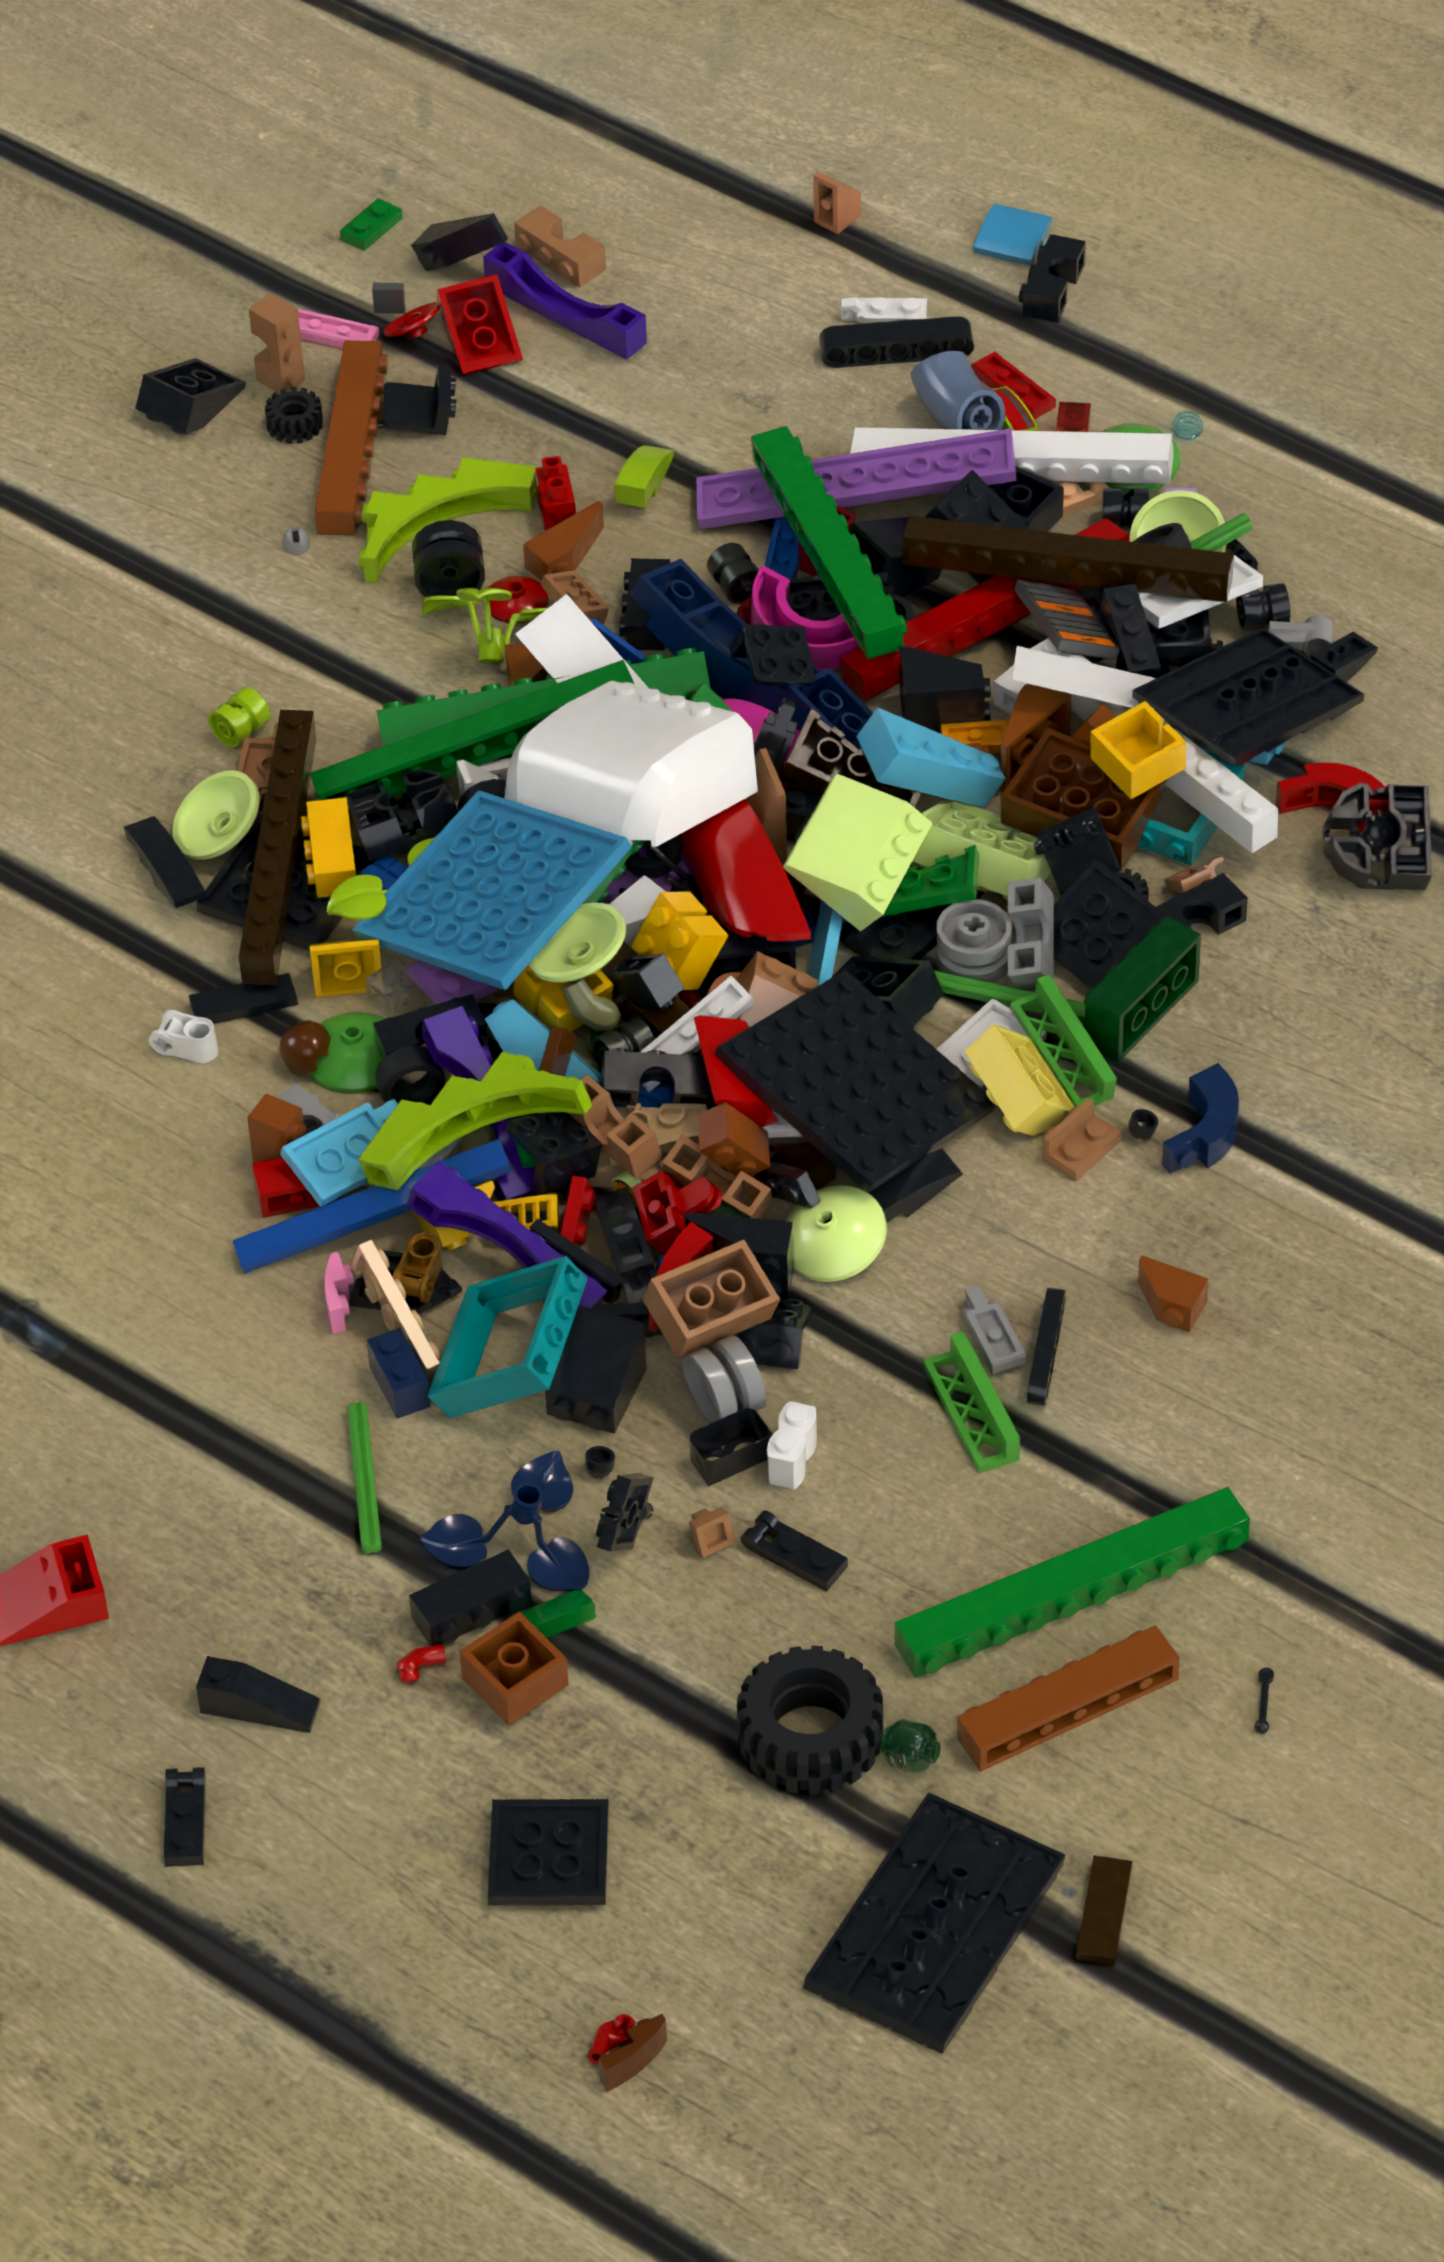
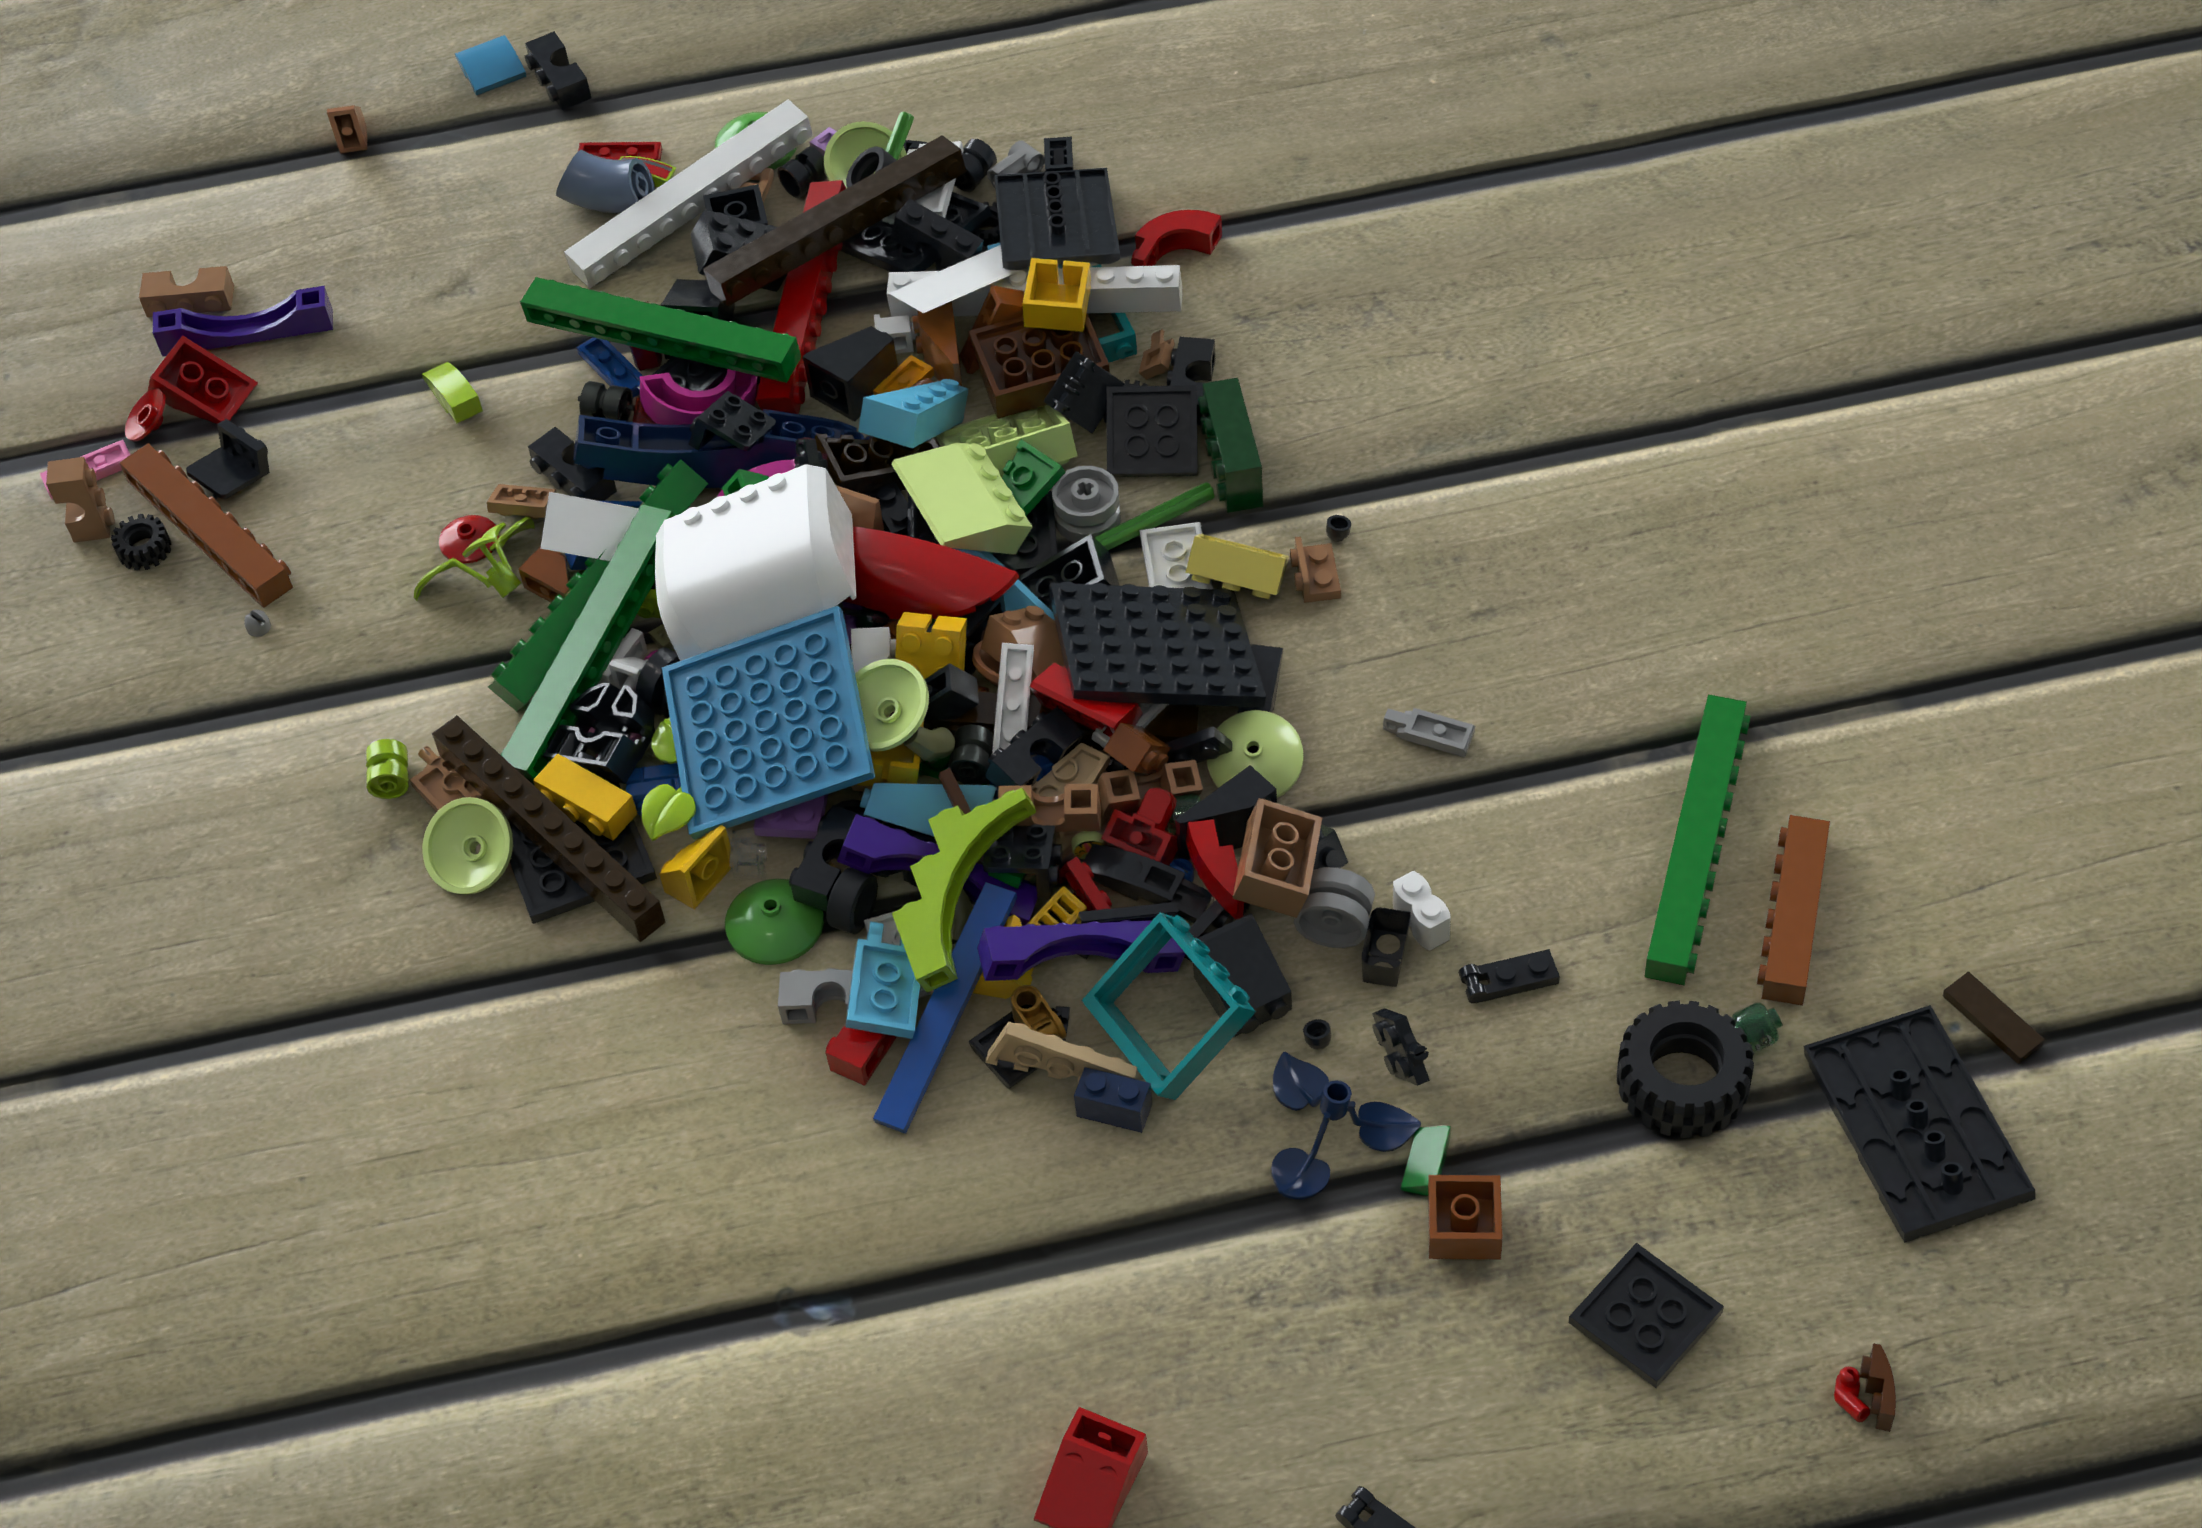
camera: 45 degrees left, 5 degrees up
(165, 862) = (474, 909): black slope -> none
(186, 394) = (41, 589): black slope -> none
(187, 1037) = (647, 1013): white piece -> none
(243, 1000) = (649, 957): black tile -> none
(253, 1696) = (1322, 1406): black slope -> none
(272, 1126) = (817, 1016): dark orange brick -> none
(303, 1046) = (745, 945): reddish brown hair -> none
(337, 1283) = (986, 1081): bright pink slope -> none
(364, 1478) = (1182, 1190): bright green axle -> none
(371, 224) = (20, 378): green plate -> none
(389, 298) = (106, 414): dark grey tile -> none
(417, 1658) = (1386, 1276): red arm -> none
(447, 558) = (402, 546): black wheel -> none
(457, 240) = (114, 337): black slope -> none
(470, 1598) = (1368, 1201): black brick -> none
(473, 489) = (325, 519): lime arch -> none
(554, 492) = (415, 450): red hips -> none
(564, 544) = (461, 484): dark orange slope -> none
(711, 1531) = (1447, 1011): medium nougat tile -> none
(864, 477) = (619, 271): medium lavender plate -> none
(883, 309) = (472, 171): white hinge -> none
(894, 341) = (507, 183): black beam -> none
(983, 1396) = (1486, 777): bright green fence -> none
(1033, 916) = (1133, 480): light grey arch -> none
(1046, 1346) = (1476, 710): black beam -> none
(1067, 619) = (881, 258): tile -> none
(1074, 417) = (695, 144): clear red brick -> none
(1074, 1038) = (1230, 512): bright green fence -> none
(1172, 1293) = (1500, 612): dark orange slope -> none
(1187, 425) = (766, 96): clear light blue plate -> none
(1217, 1101) = (1375, 481): dark blue arch -> none
(1266, 1677) = (1870, 790): black hinge -> none
(1352, 855) = (1235, 225): black connector -> none

